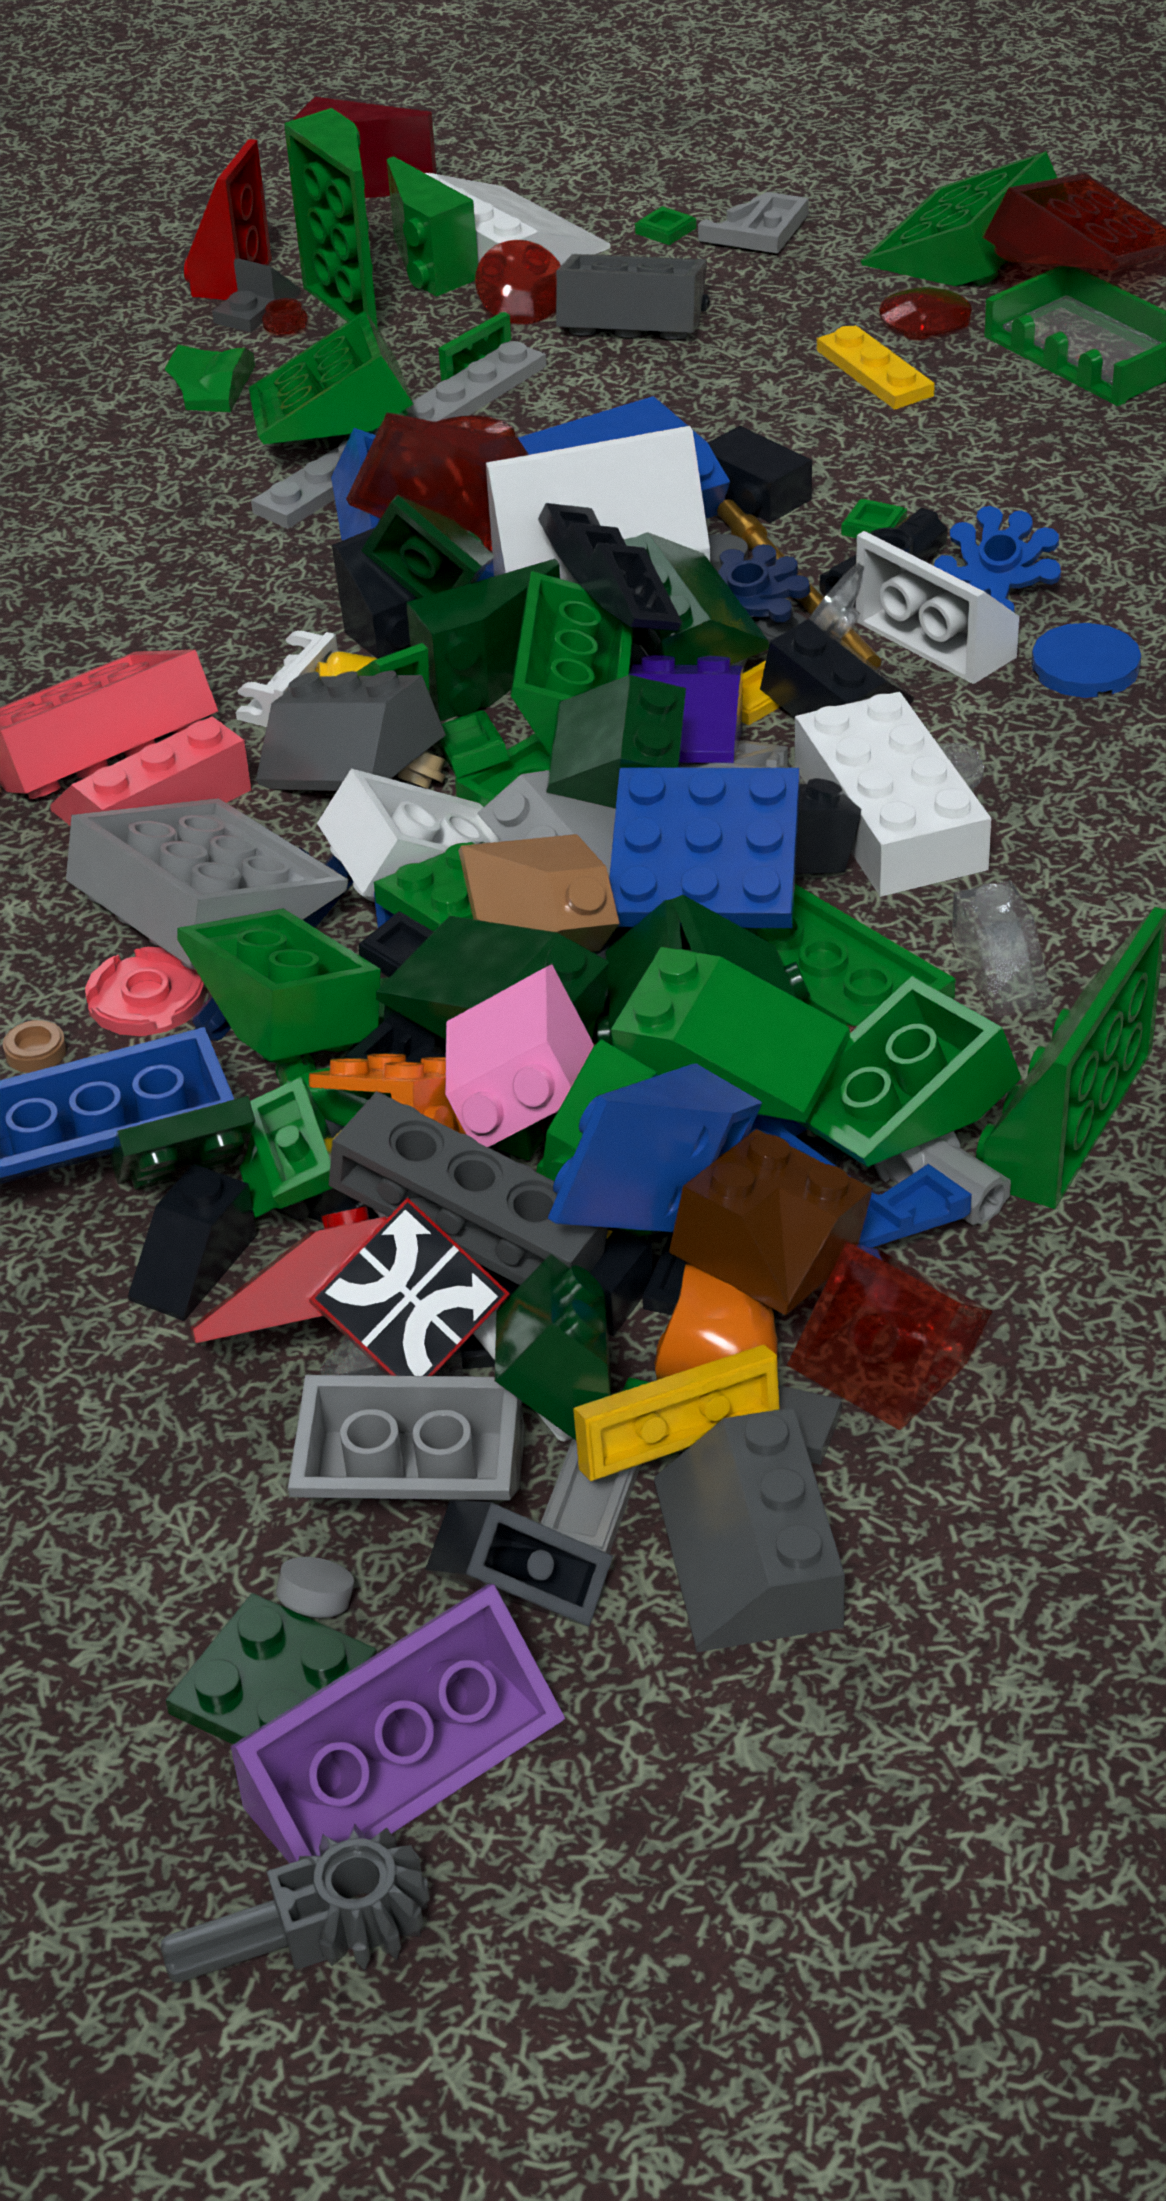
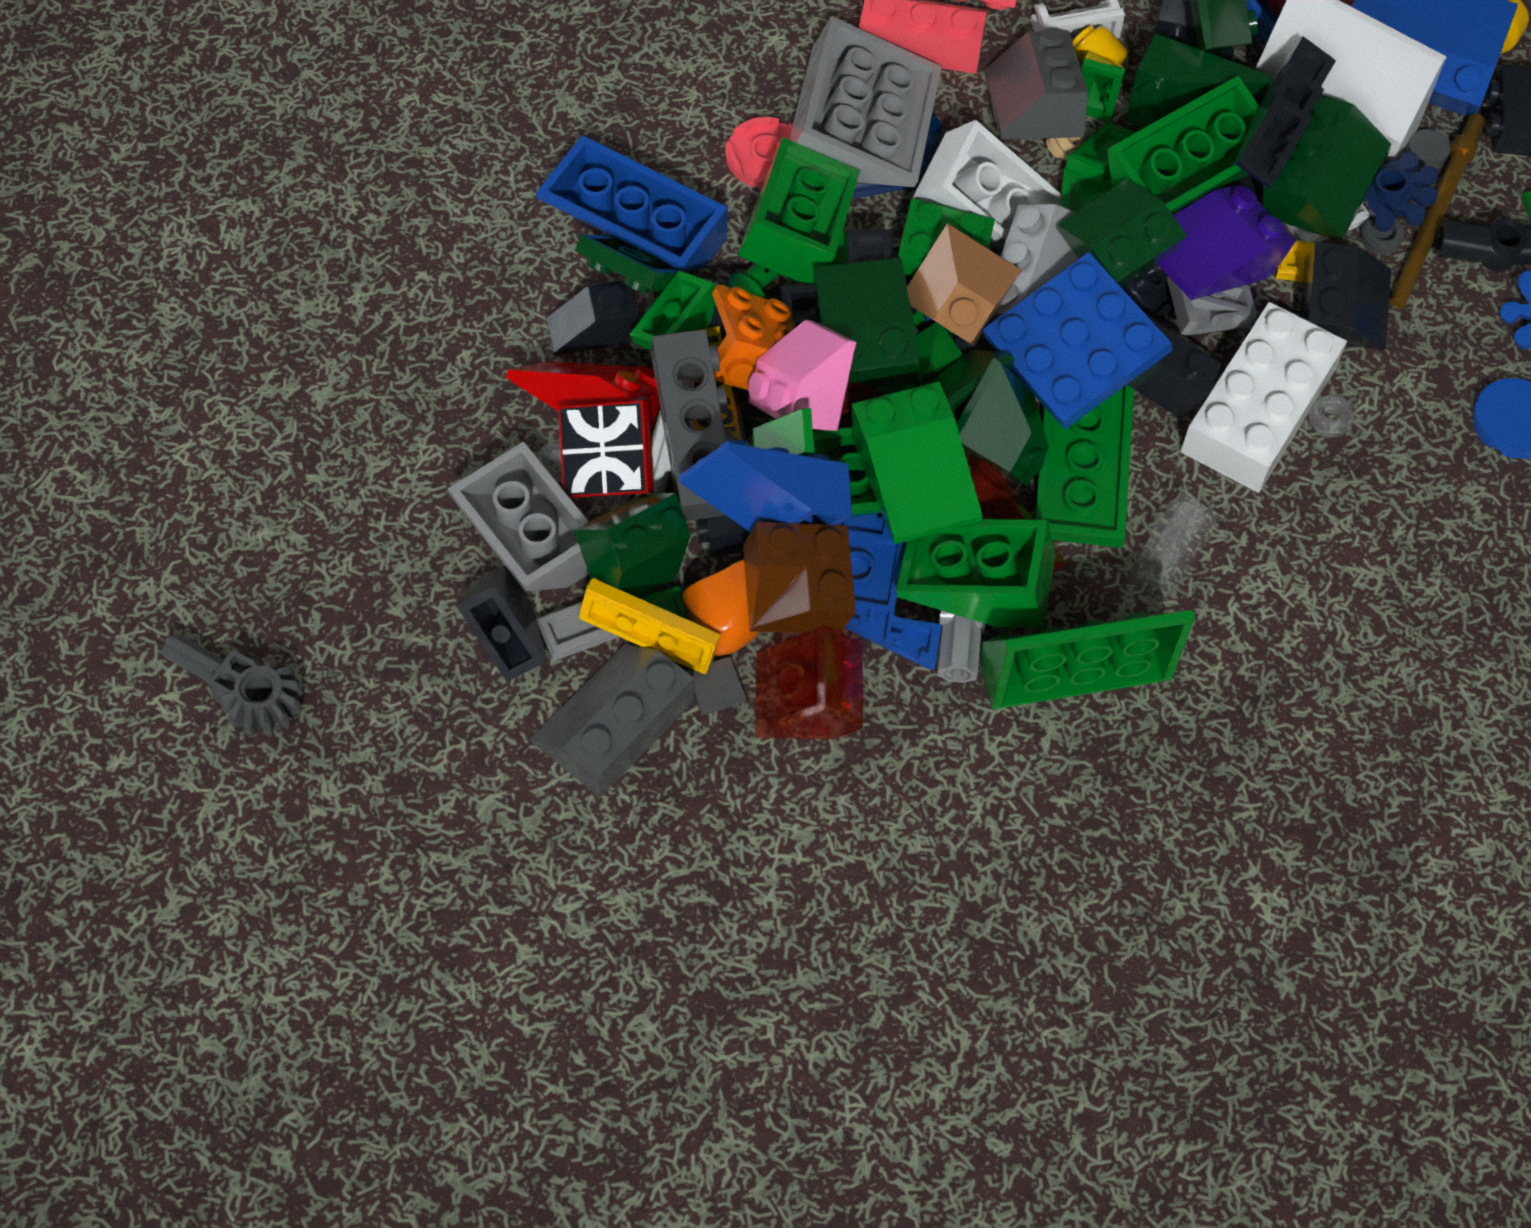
camera: 45 degrees right, 20 degrees up
(34, 1046) = (680, 136): medium nougat tile -> none
(261, 1669) = (359, 568): dark green plate -> none
(314, 1587) = (425, 543): light grey tile -> none
(397, 1730) = (362, 646): medium lavender slope -> none
(836, 609) = (1403, 252): clear dish -> none
(933, 612) = (1468, 304): white slope -> none

